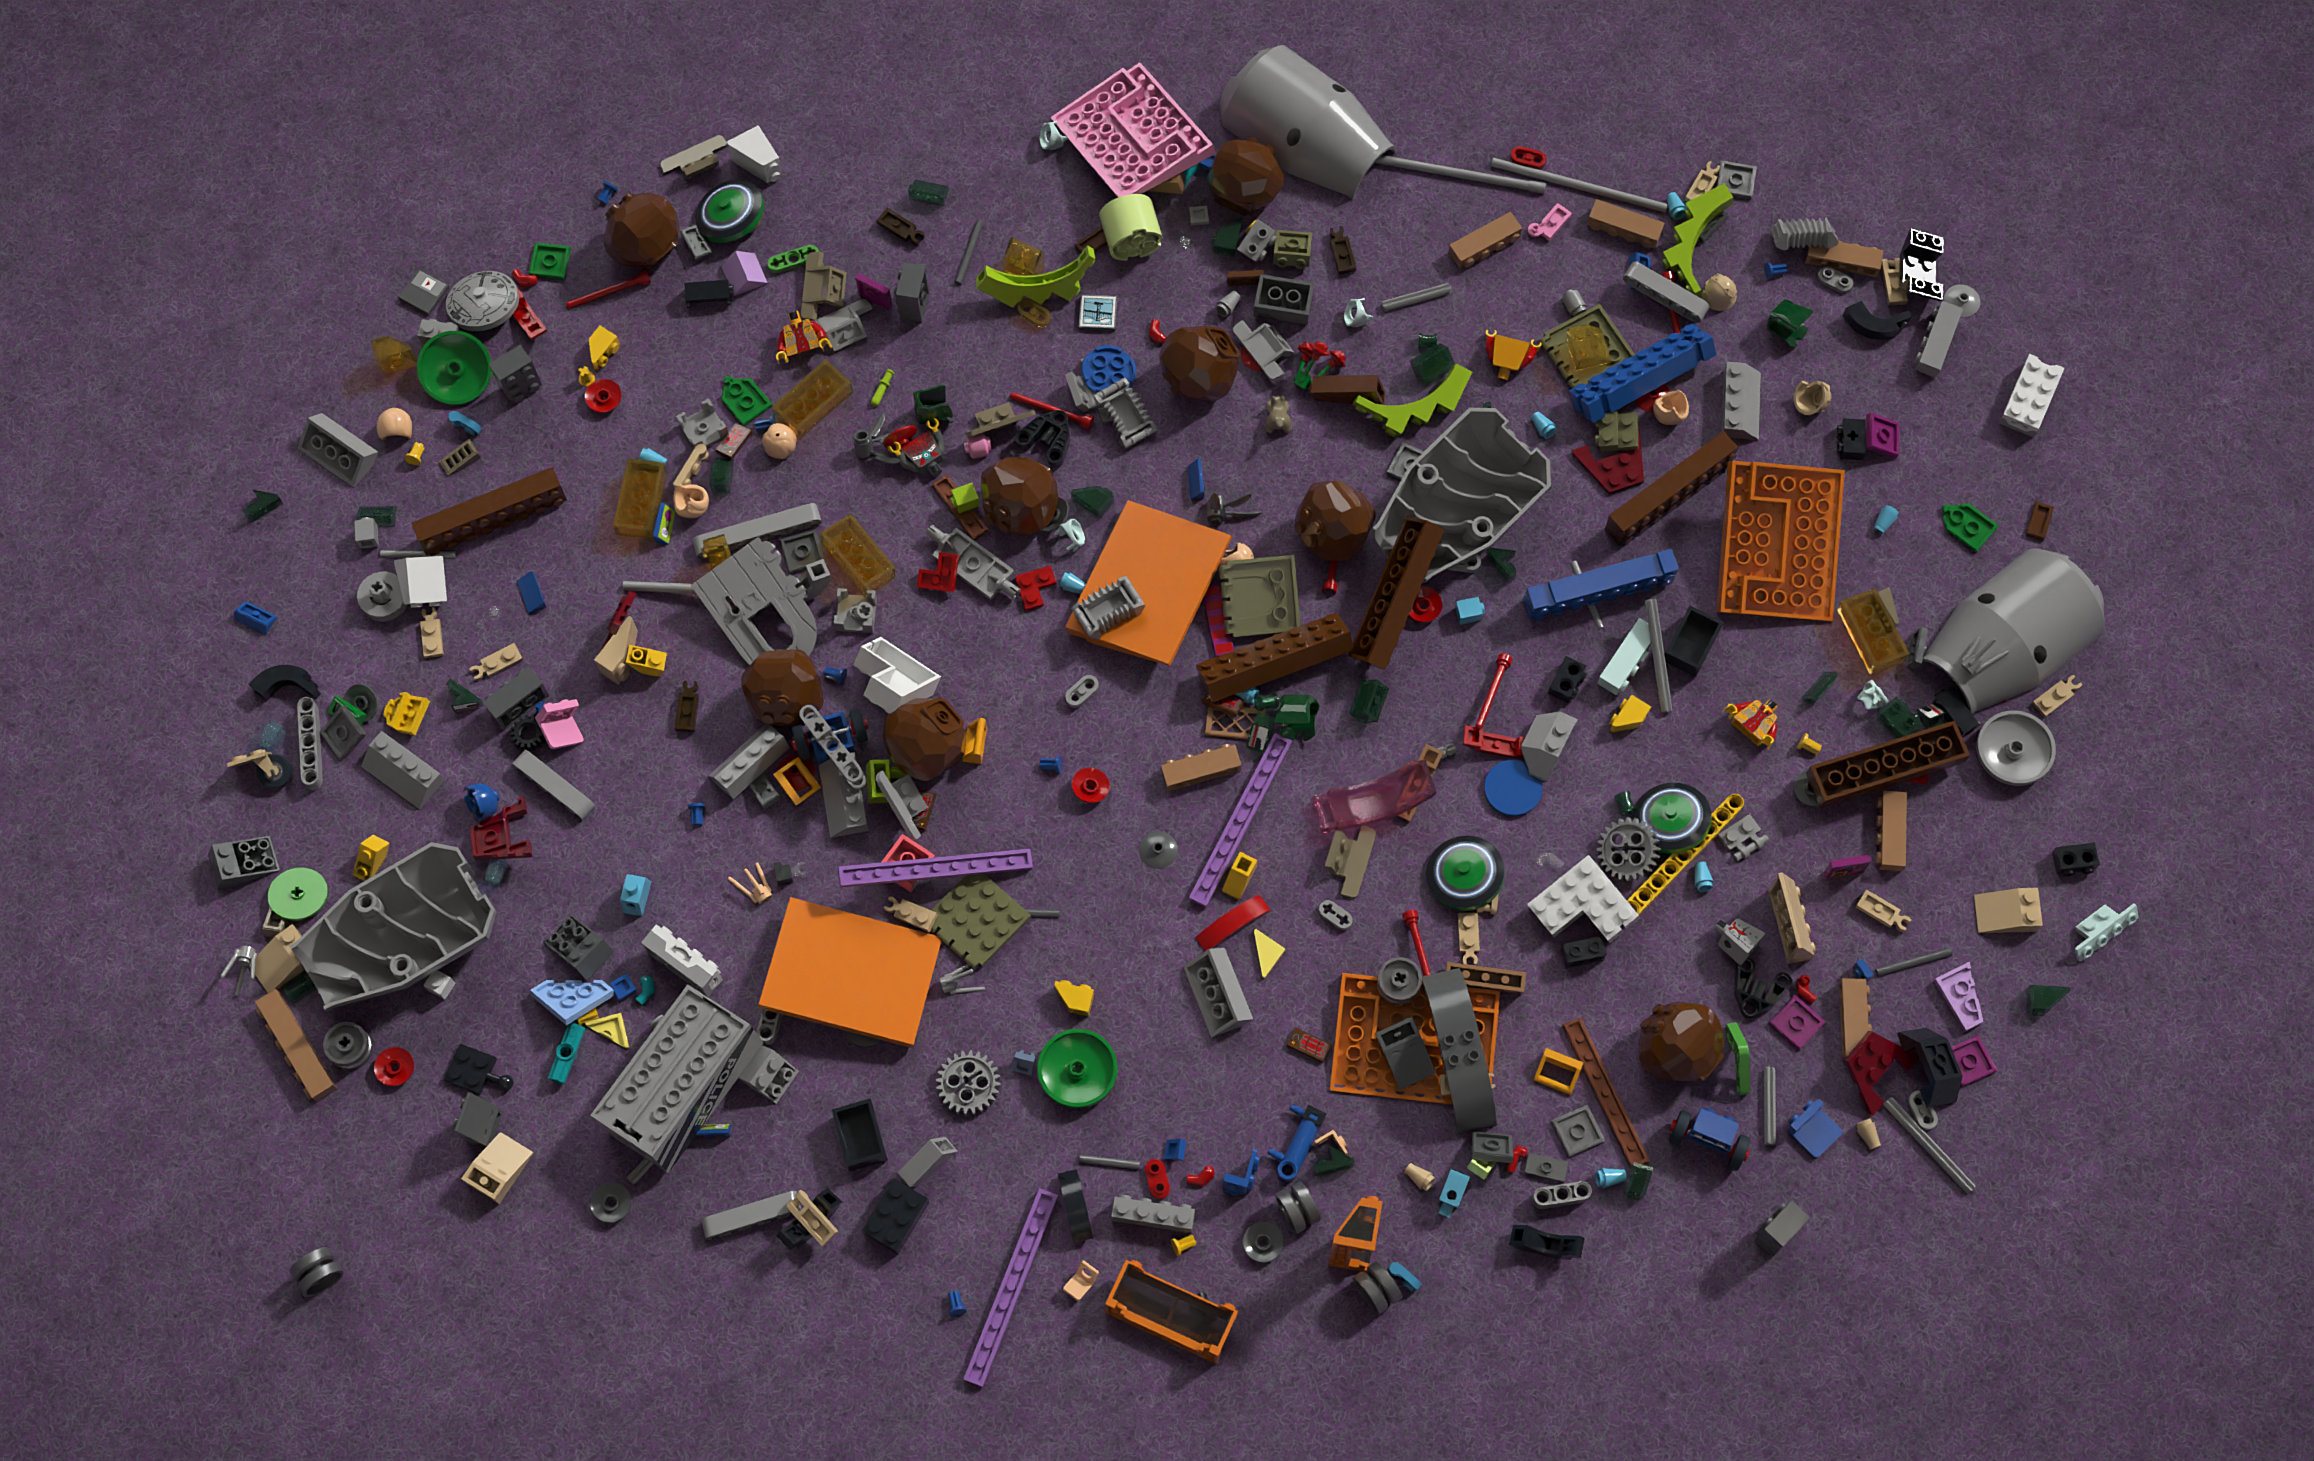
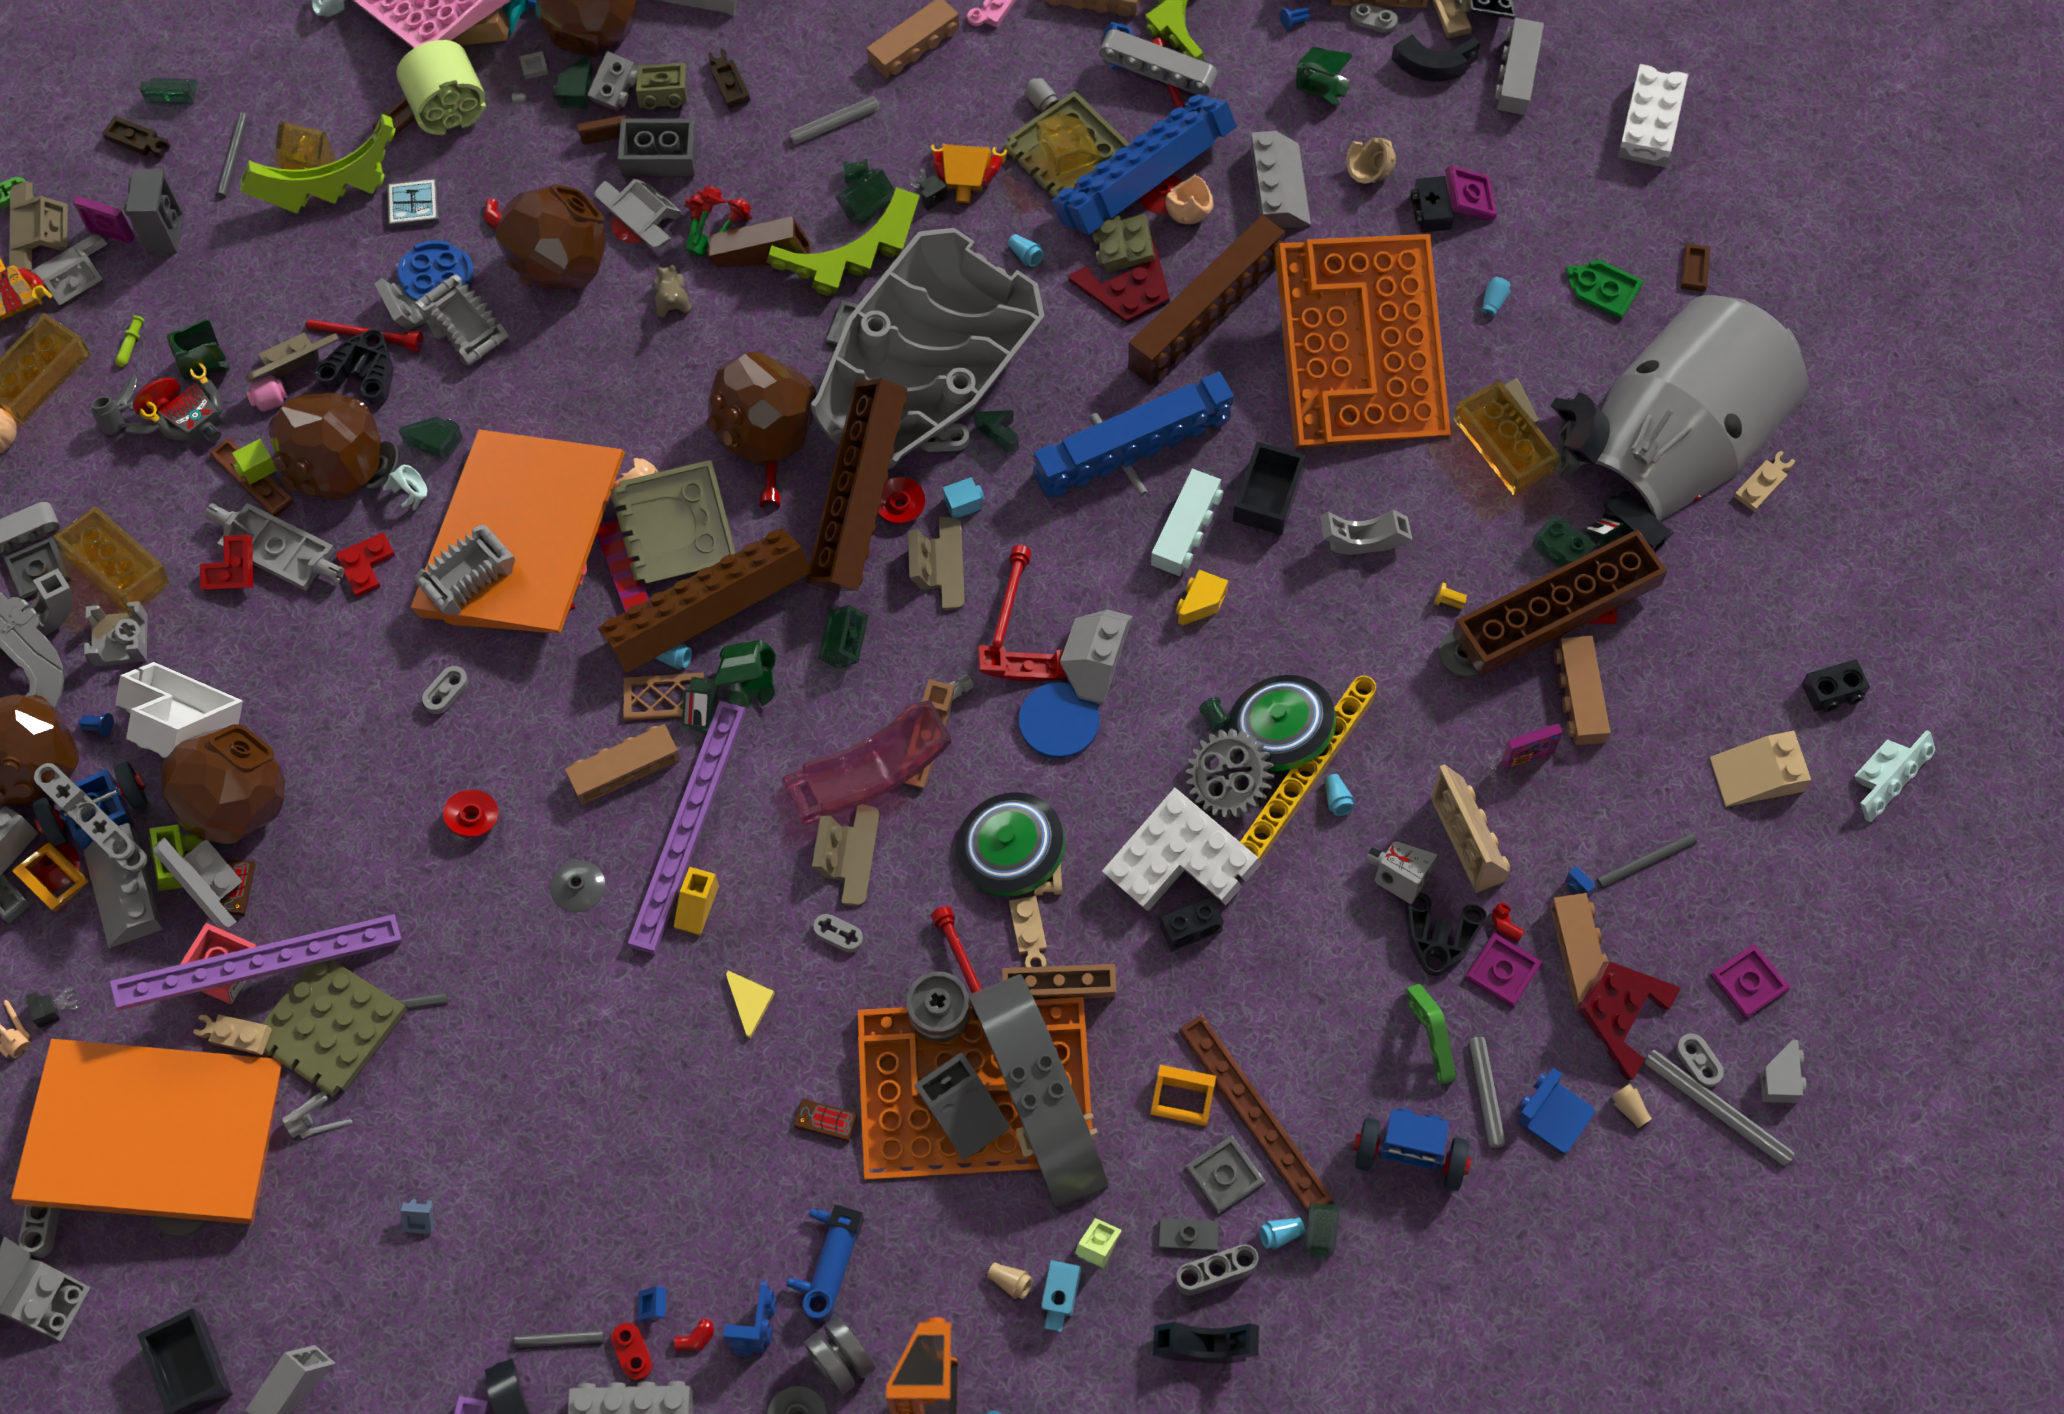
camera: 10 degrees left, 5 degrees down
(956, 1069) = (358, 1276): light grey gear -> none
(975, 741) = (302, 781): light orange tile -> none
(1036, 311) = (328, 216): clear yellow plate -> none
(1051, 764) = (414, 794): blue piece -> none
(1072, 583) = (414, 550): medium azure cone -> none
(1076, 998) = (483, 1112): yellow slope -> none
(1077, 1068) = (495, 1211): green dish -> none
(1196, 480) = (570, 391): blue slope -> none
(1217, 508) = (603, 418): dark grey plant -> none
(1217, 991) = (685, 1067): light grey slope -> none
(1227, 304) = (584, 166): light grey cone -> none
(1229, 705) = (649, 674): tile -> none
(1232, 922) = (693, 967): red slope -> none
(1265, 702) = (702, 661): clear green bush -> none
(1338, 1140) = (886, 1248): light nougat bracket -> none
(1338, 1162) = (891, 1279): clear green slope -> none
(1361, 317) = (763, 154): light aqua piece -> none
(1444, 655) = (939, 562): none -> dark tan plate
(1481, 366) = (932, 189): none -> pearl dark grey piece
(1492, 1147) = (1106, 1218): dark grey tile -> none
(1518, 1152) = (1139, 1228): red arm -> none
(1548, 858) = (1120, 805): clear arm -> none
(1563, 678) = (1105, 565): black brick -> none
(1658, 655) = (1226, 512): light grey axle -> none
(1681, 1042) = (1347, 1023): reddish brown rock -> none
(1720, 292) = (1228, 54): tan helmet -> none
(1740, 832) = (1377, 728): light grey plate -> none
(1755, 720) = (1371, 577): torso -> none
(1761, 689) = (1365, 536): none -> light grey arch
(1781, 1227) = (1535, 1260): dark grey brick -> none
(1819, 687) = (1450, 521): slope -> none
(1872, 696) = (1522, 520): light aqua piece -> none
(1881, 910) = (1590, 799): tan plate -> none
(1935, 638) = (1590, 430): none -> black arch
(1938, 1064) = (1709, 991): black slope -> none
(1960, 995) = (1718, 893): lavender wing -> none
(1970, 305) = (1552, 18): light grey dish -> none
(1978, 1132) = (1782, 1076): none -> light grey slope
(2015, 748) = (1725, 555): light grey dish -> none
(2043, 998) = (1832, 878): clear green slope -> none

